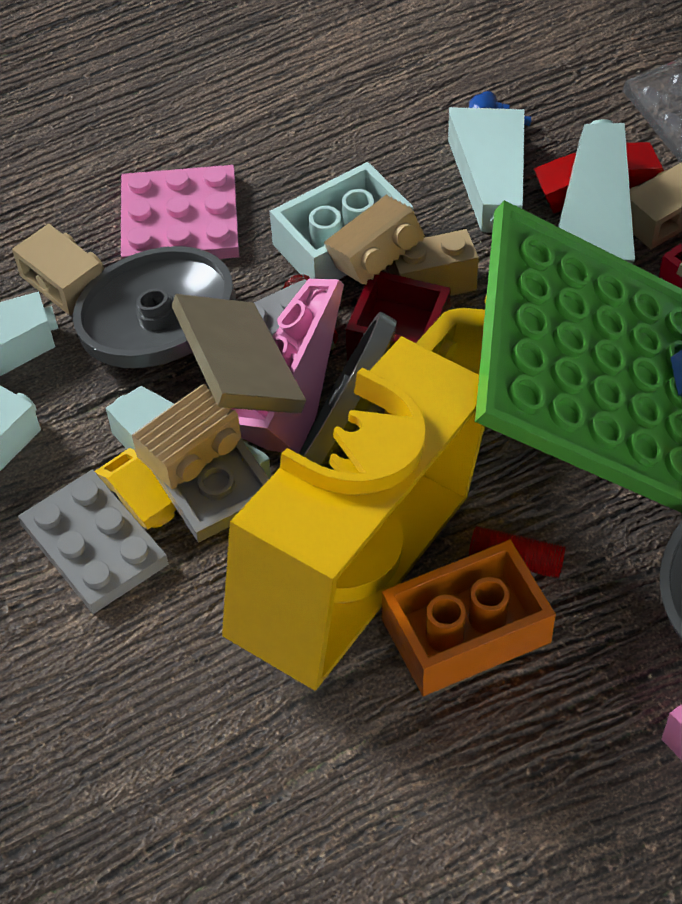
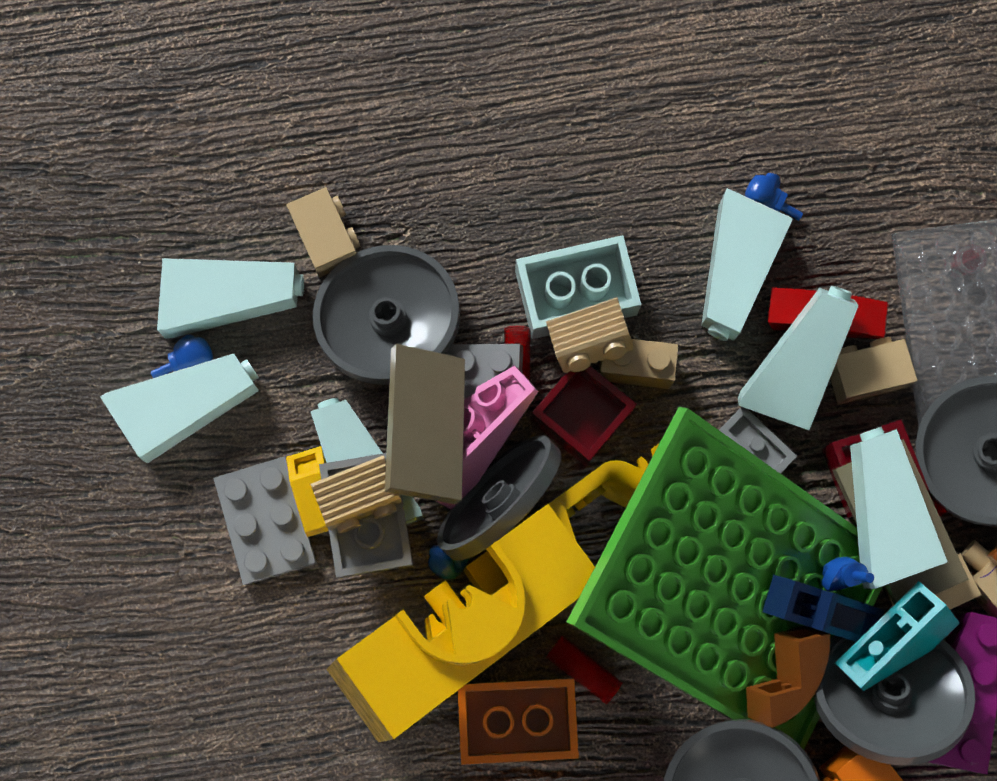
camera: 15 degrees right, 25 degrees up
(180, 210) = (447, 203): bright pink plate -> none

